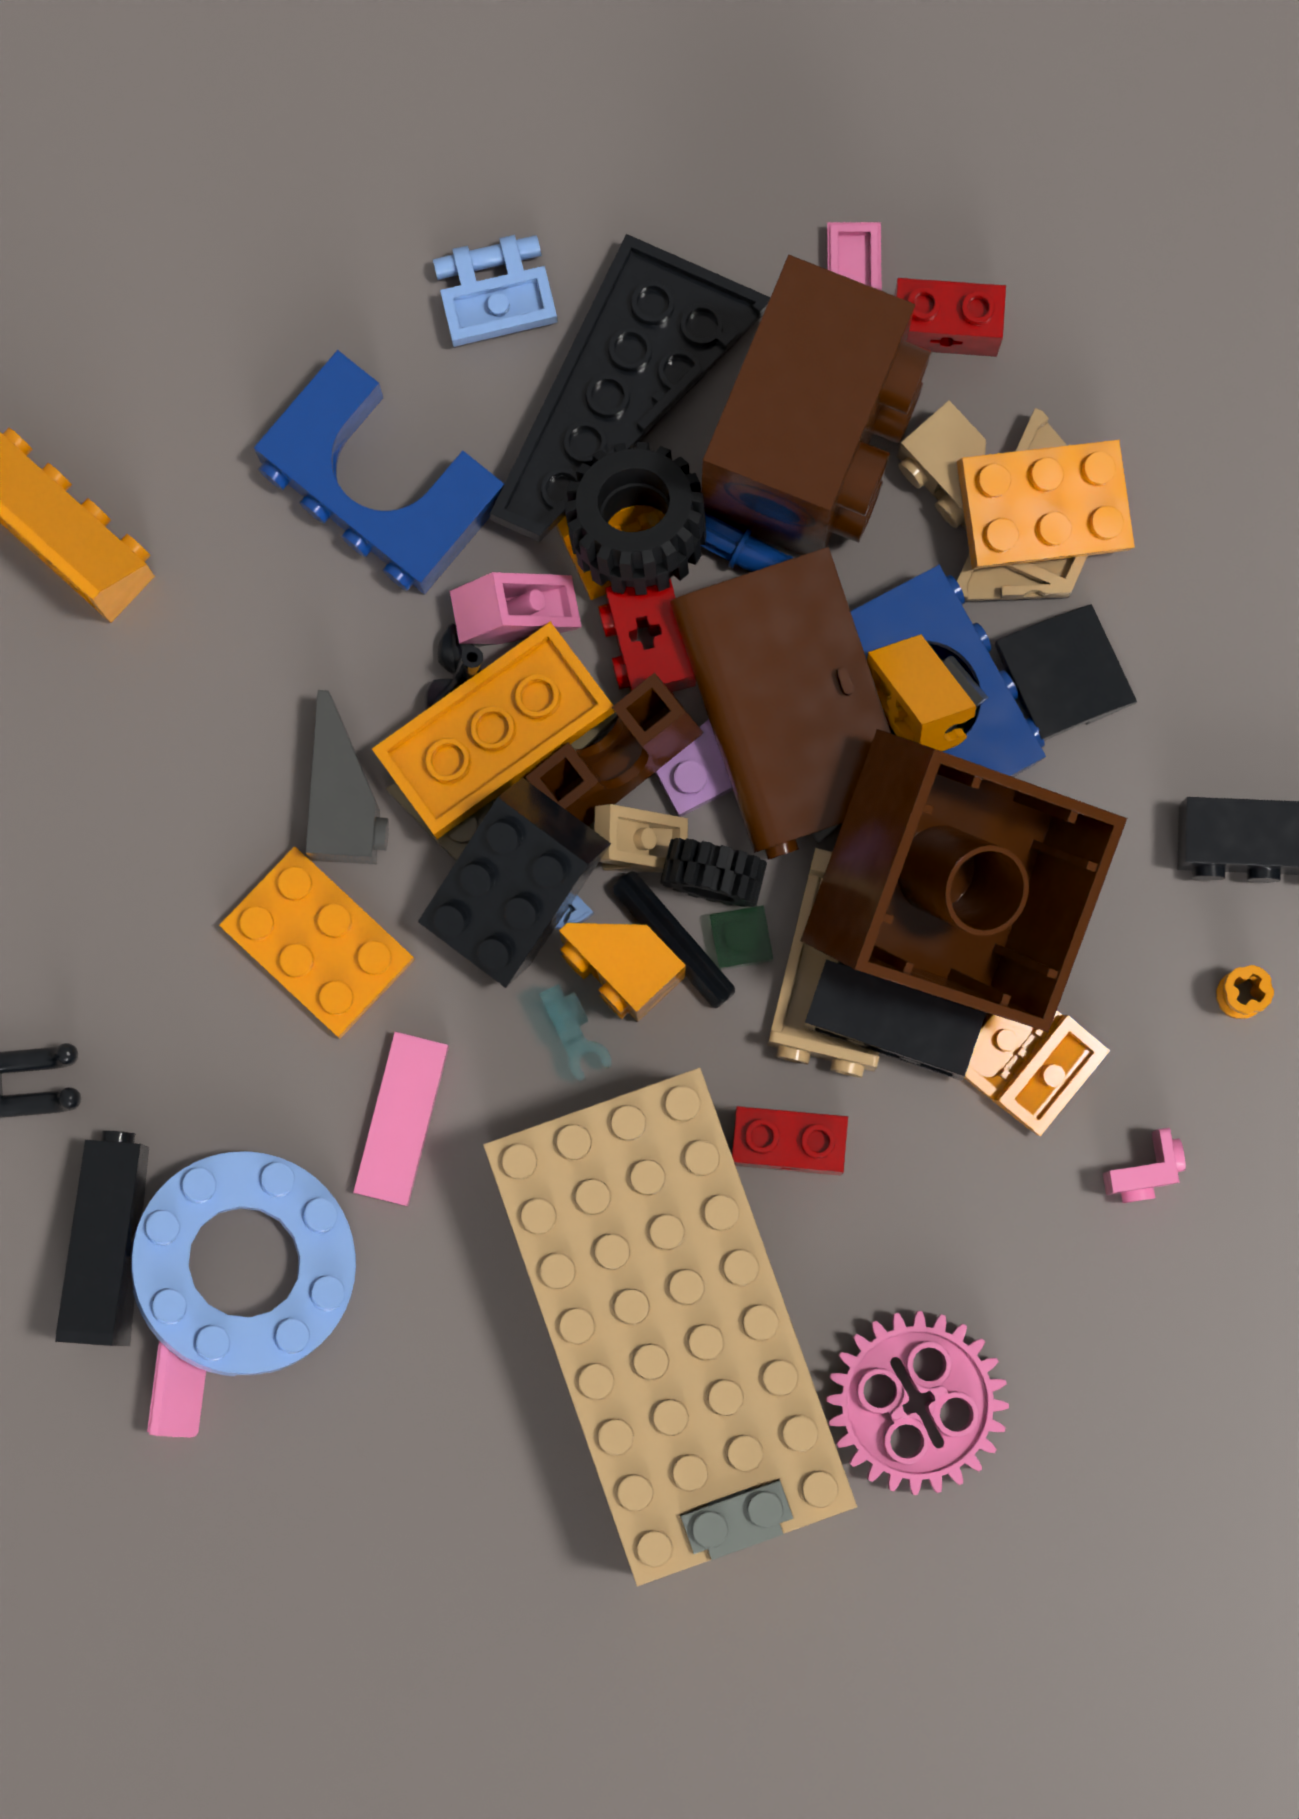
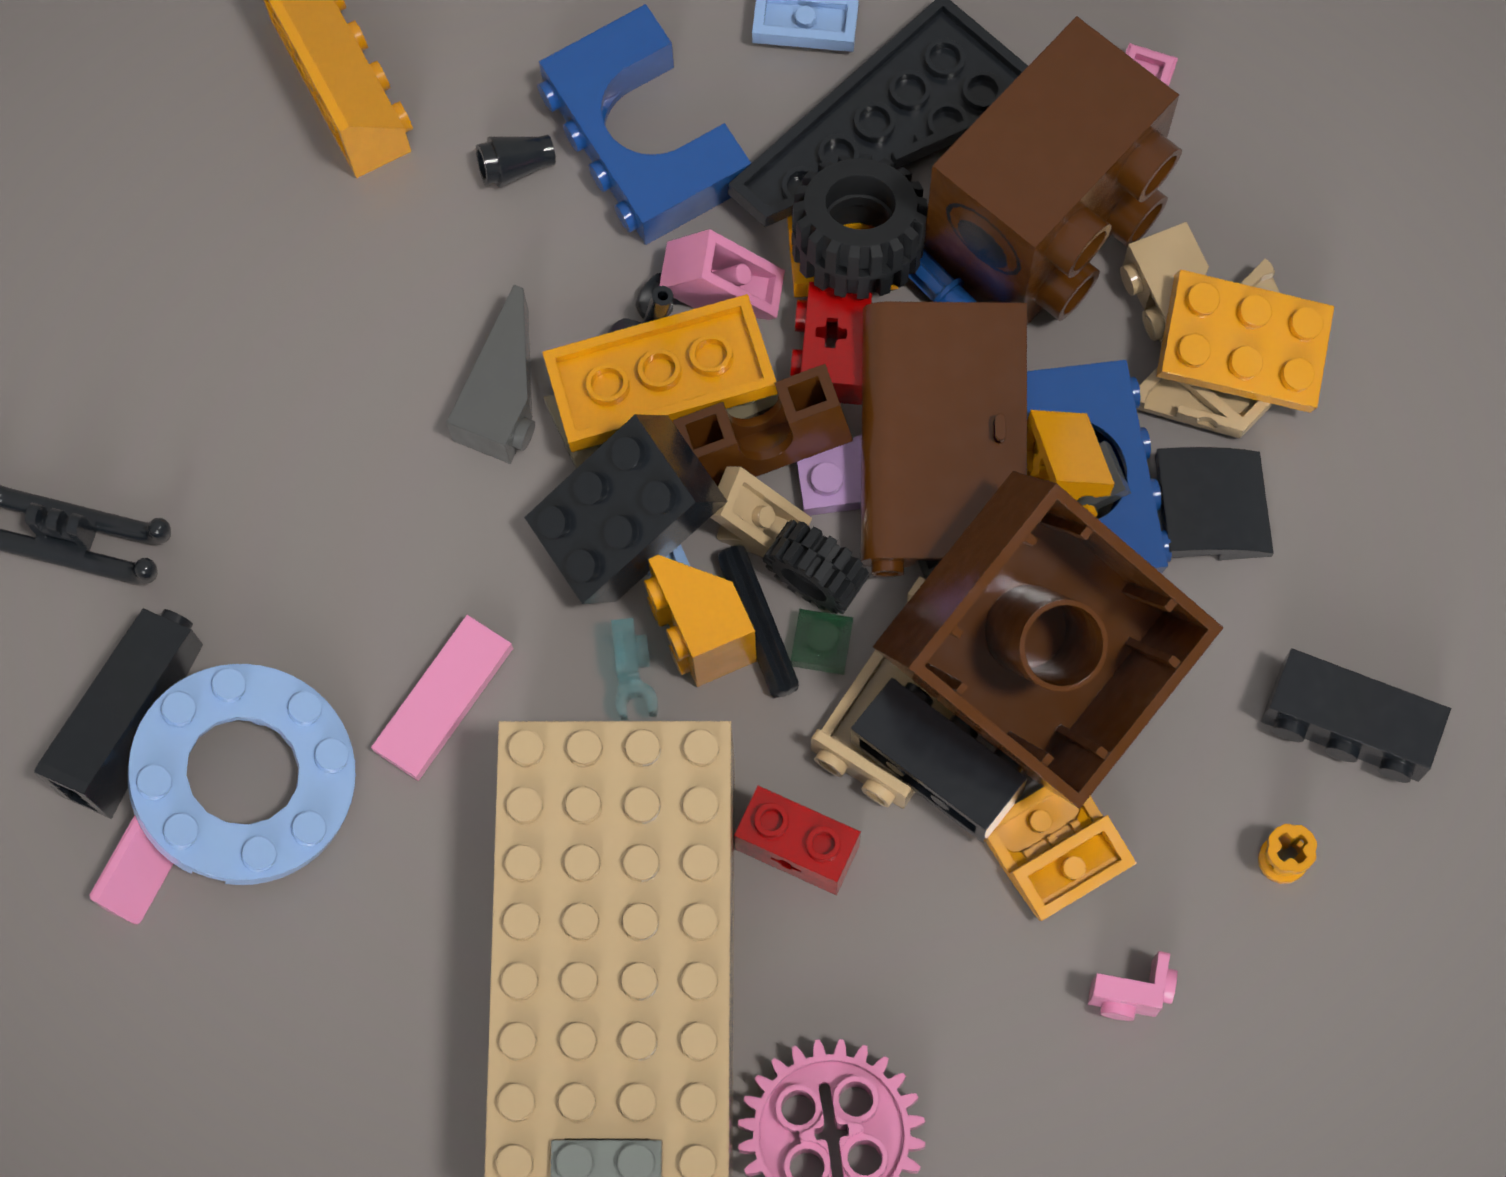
camera: 20 degrees right, 10 degrees down
(260, 553) = (511, 158): none -> black cone
(317, 942) = (428, 513): light orange plate -> none
(955, 315) = (1217, 155): red brick -> none

